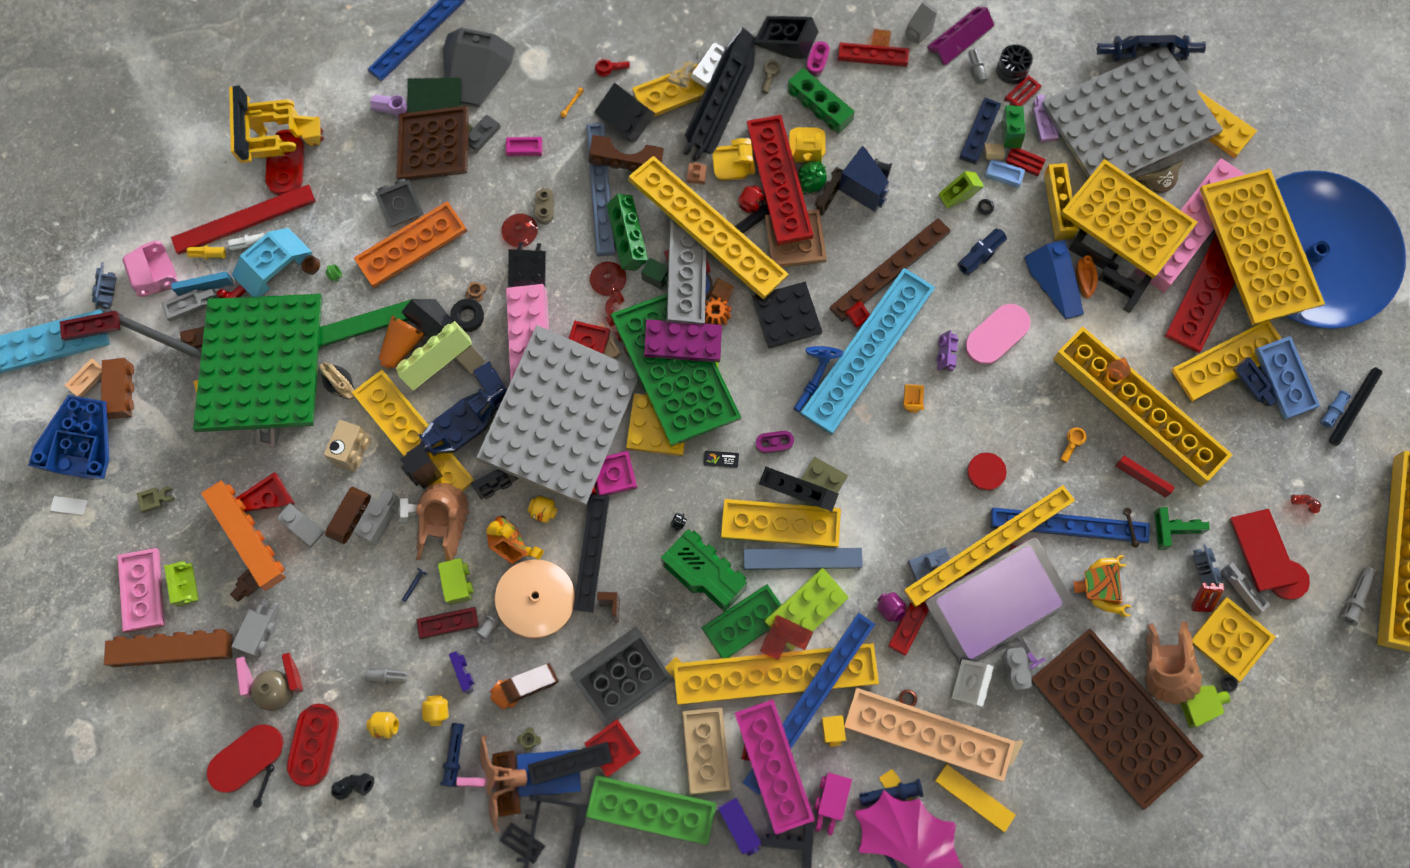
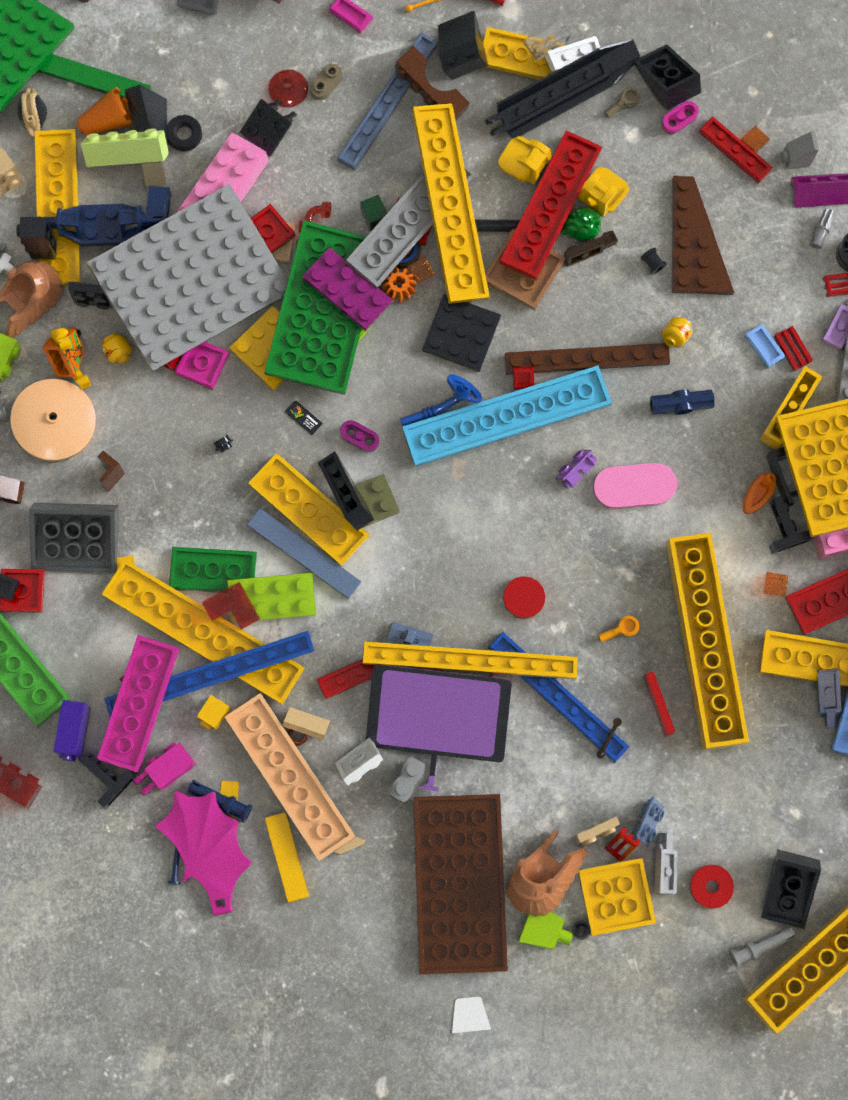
camera: 30 degrees right, 5 degrees up
(333, 272) = (99, 13): bright green plate -> none
(410, 244) = (183, 34): orange plate -> none
(471, 291) = (207, 111): medium nougat plate -> none
(591, 553) = (130, 416): black plate -> none
(603, 285) = (338, 193): clear red dish -> none
(627, 232) = (377, 157): green brick -> none
(696, 173) = (484, 147): nougat tile -> none
(703, 570) = (207, 499): green piece -> none
(706, 751) = (96, 650): tan tile -> none
(751, 199) = (512, 205): red head -> none
(818, 92) = (648, 129): green brick -> none
(864, 181) = (624, 260): dark blue slope -> none
(891, 607) = (344, 649): magenta head -> none
(903, 142) = (695, 252): none -> reddish brown wing
(908, 684) = (306, 723): none -> tan tile
(913, 397) = (511, 486): light orange bracket -> none
(939, 205) = (677, 332): none -> yellow head
(961, 189) = (712, 332): lime slope -> none
(980, 131) = (775, 291): dark blue tile -> none
(985, 212) = (724, 358): black piece -> none
(994, 151) = (770, 319): tan tile -> none
(1013, 126) = (805, 308): green brick -> none
(1055, 273) = (730, 469): blue wedge -> none
(1104, 585) = (542, 767): torso -> none
(1119, 369) = (709, 593): clear orange tile -> none
(1150, 331) = (775, 584): none -> clear orange tile
(1165, 529) = (649, 767): green bracket -> none
(1180, 605) = (605, 829): none -> tan plate
(1202, 812) = (469, 1015): none -> white sticker
(1263, 550) = (710, 844): red tile -> none
(1314, 504) = (789, 833): clear red arm -> none
(1344, 538) = (791, 888): none -> black slope

